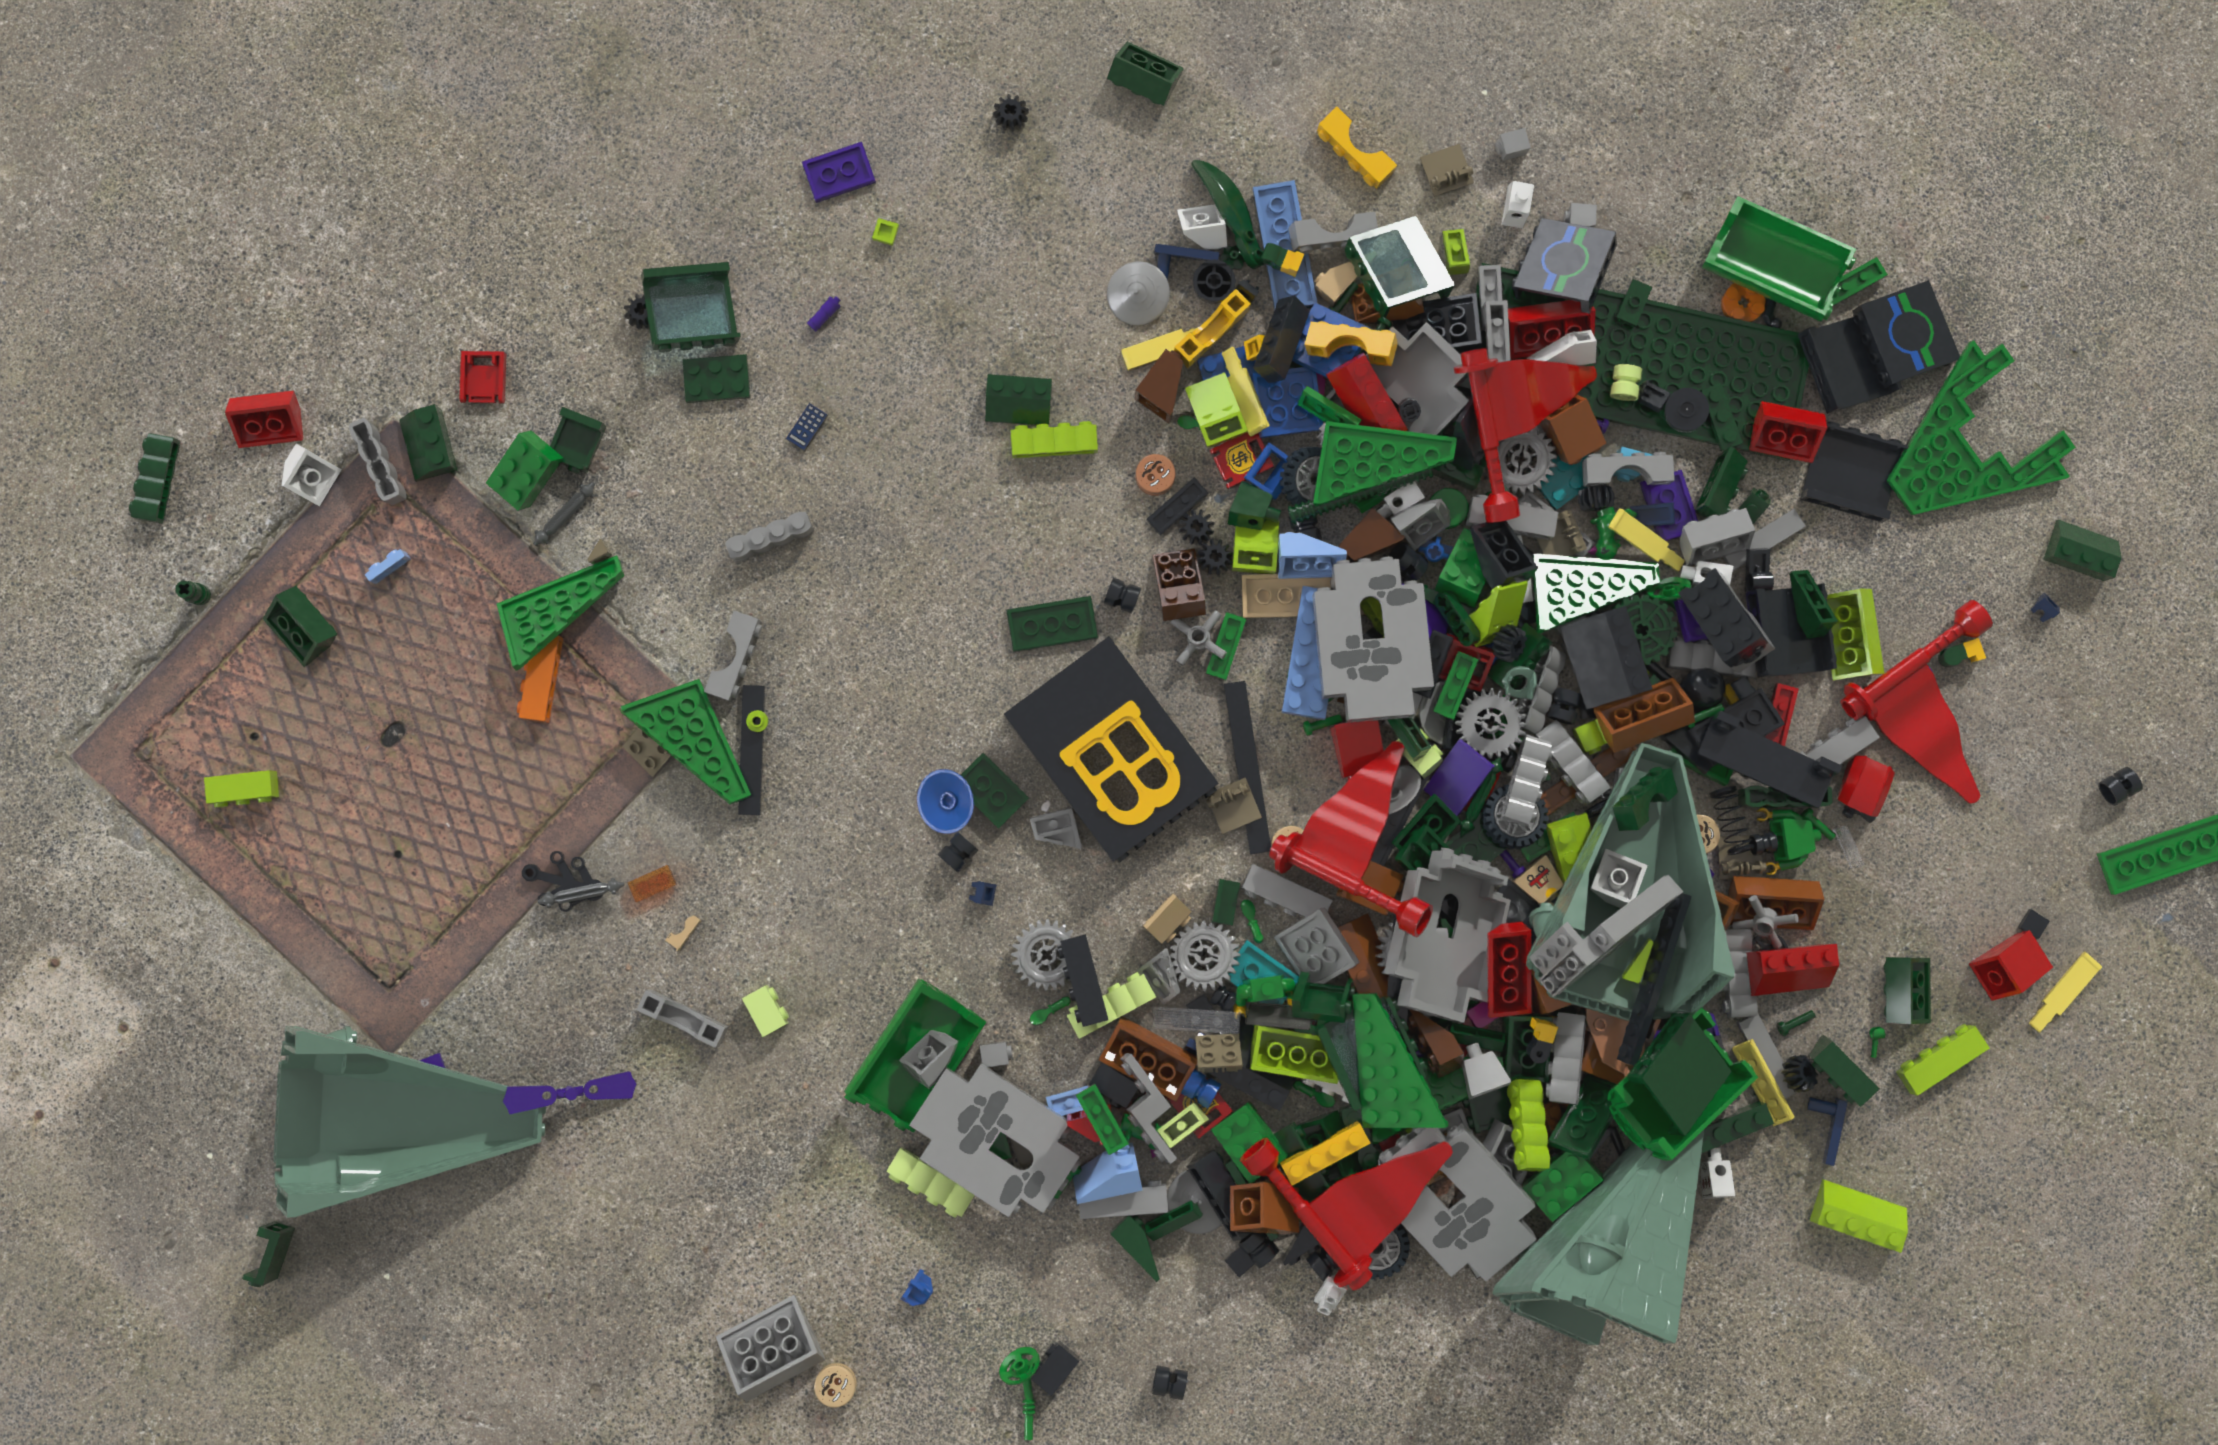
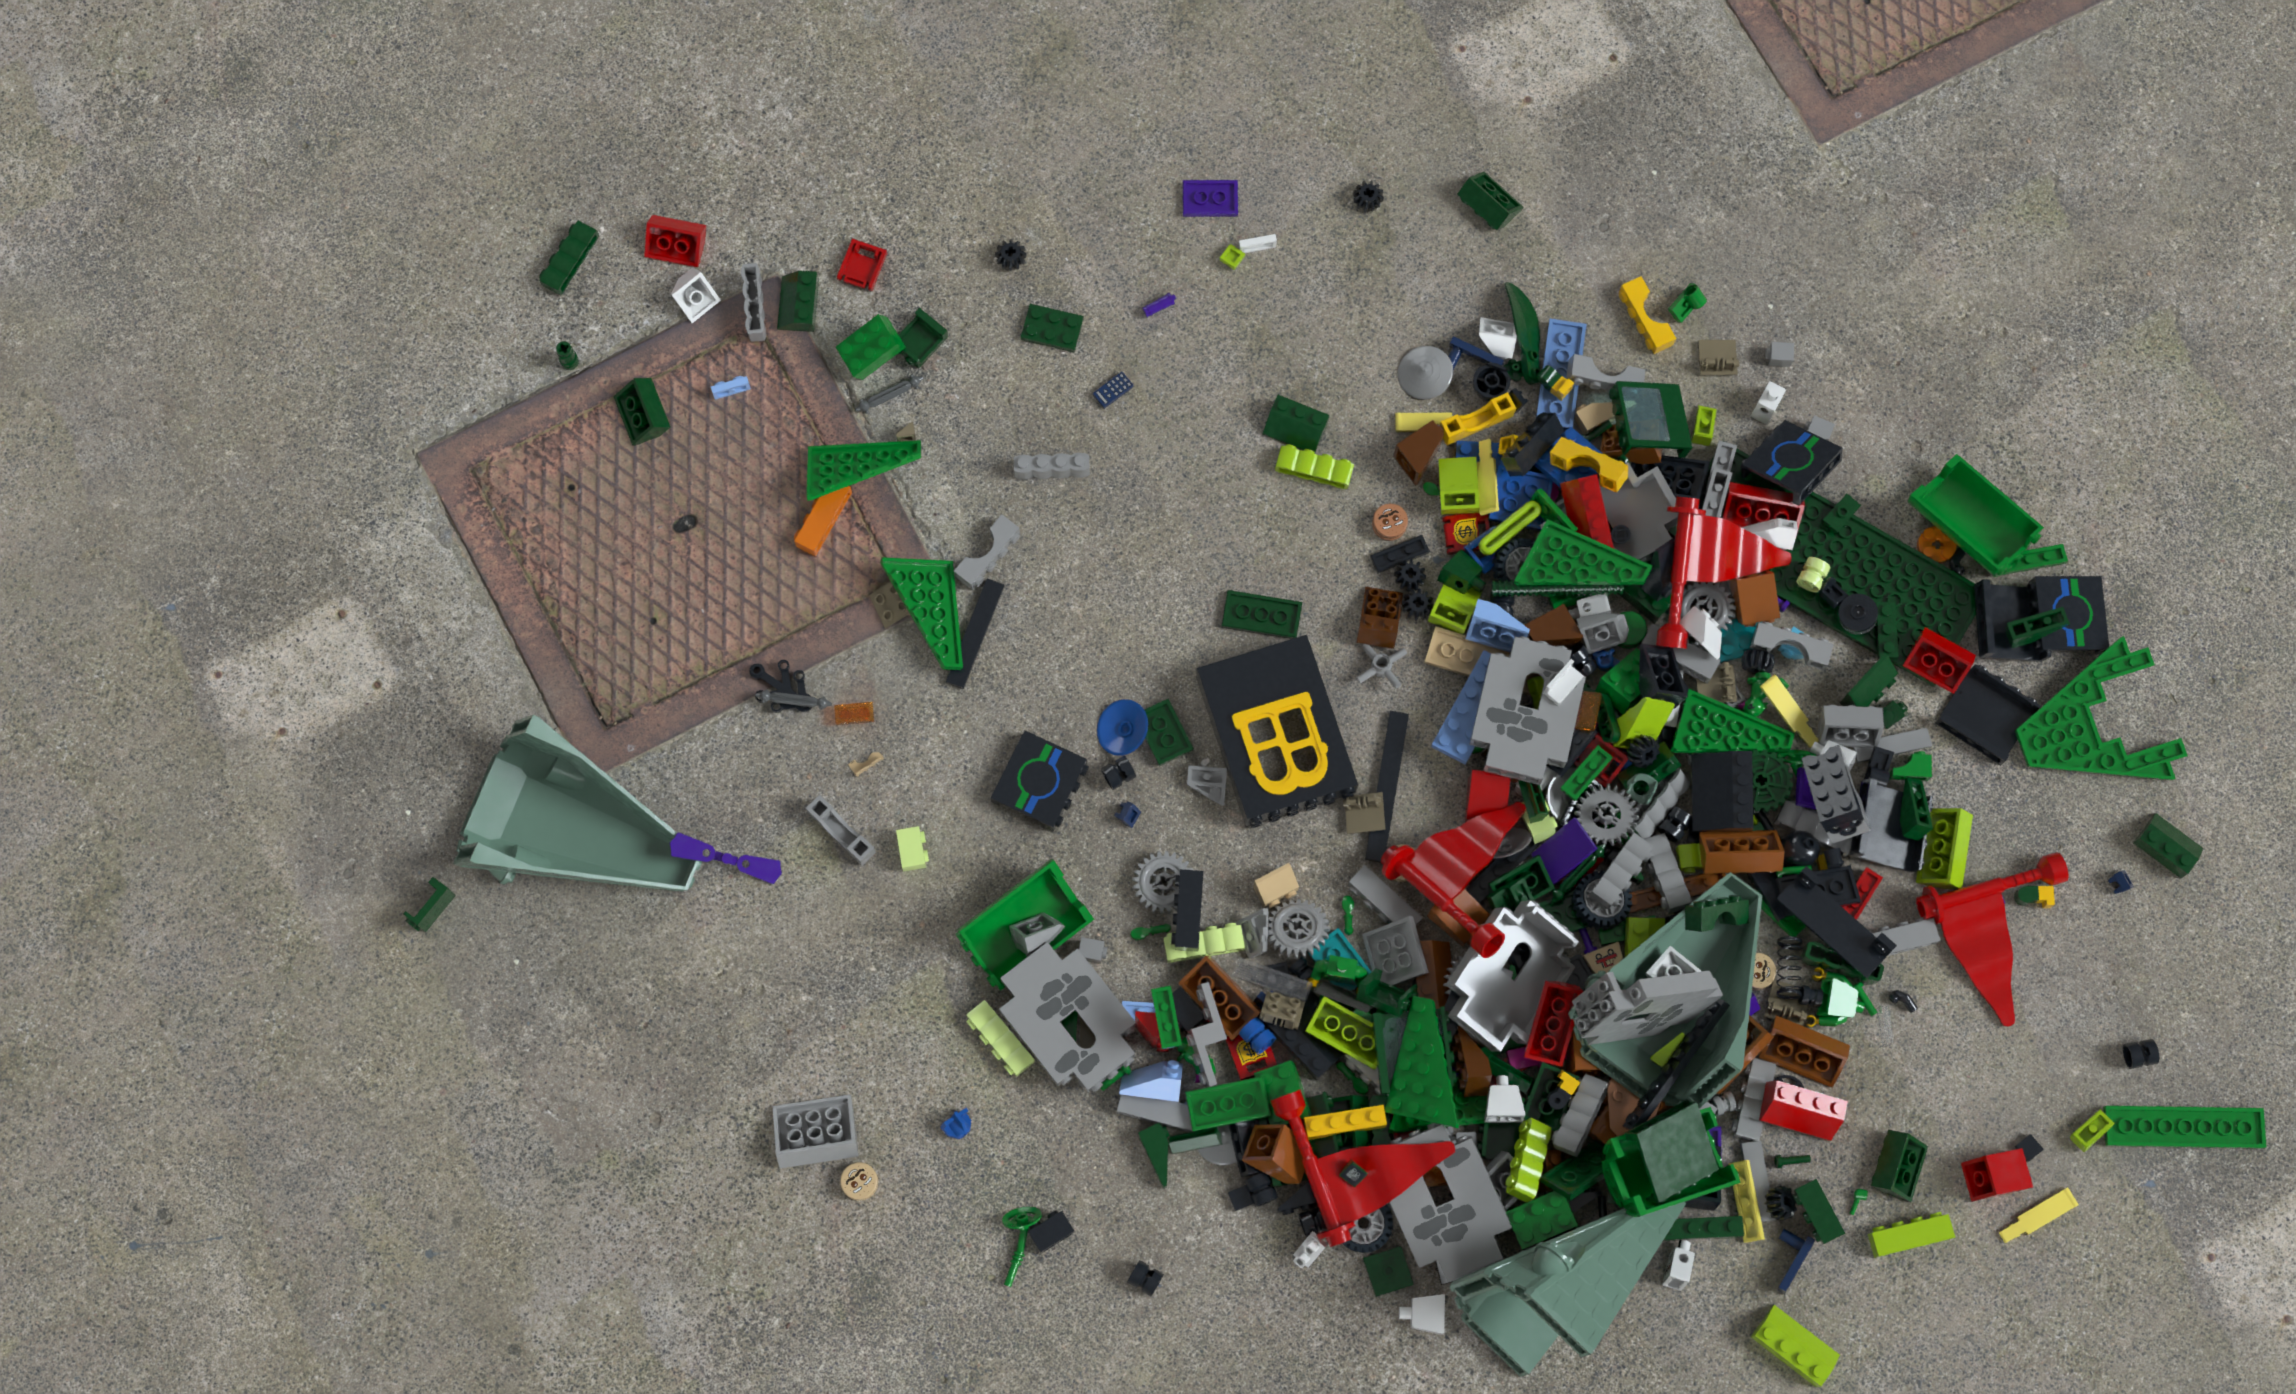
camera: 25 degrees right, 10 degrees down
(241, 788) = (547, 523): lime brick -> none
(689, 306) = (1051, 262): clear light blue panel -> none
(764, 721) = (988, 615): lime plate -> none
(877, 889) = (1040, 780): none -> black panel
(908, 208) = (1257, 243): none -> white tile
(1122, 595) = (1328, 609): black wheel -> none
(1183, 1125) = (1231, 1060): yellowish green brick -> none
(1195, 1174) = (1228, 1104): none -> green tile
(1225, 902) = (1330, 891): dark green panel -> none
(1228, 641) = (1406, 675): green plate -> none
(1287, 441) = (1509, 527): none -> lime piece
(1309, 727) = (1458, 771): green piece -> none
(1352, 1207) = (1353, 1173): none -> slope
(1396, 115) = (1688, 300): none -> green plate
(1403, 600) = (1563, 683): none -> white panel
(1418, 1284) = (1388, 1271): none -> dark green plate
(1437, 618) = (1588, 711): none -> clear orange plate
(1471, 1316) = (1426, 1313): none -> white torso
(1531, 487) = (1703, 630): none -> white slope
(1655, 514) = (1805, 692): dark blue tile -> none
(1678, 494) = (1819, 689): dark purple tile -> none
(1765, 922) = (1791, 1060): light grey bar -> none
(1797, 555) = (1918, 767): none -> green arch
(1865, 785) = (1916, 977): red slope -> none
(1879, 361) = (2035, 627): none -> dark green slope
(2093, 884) = (2091, 1130): none -> lime slope

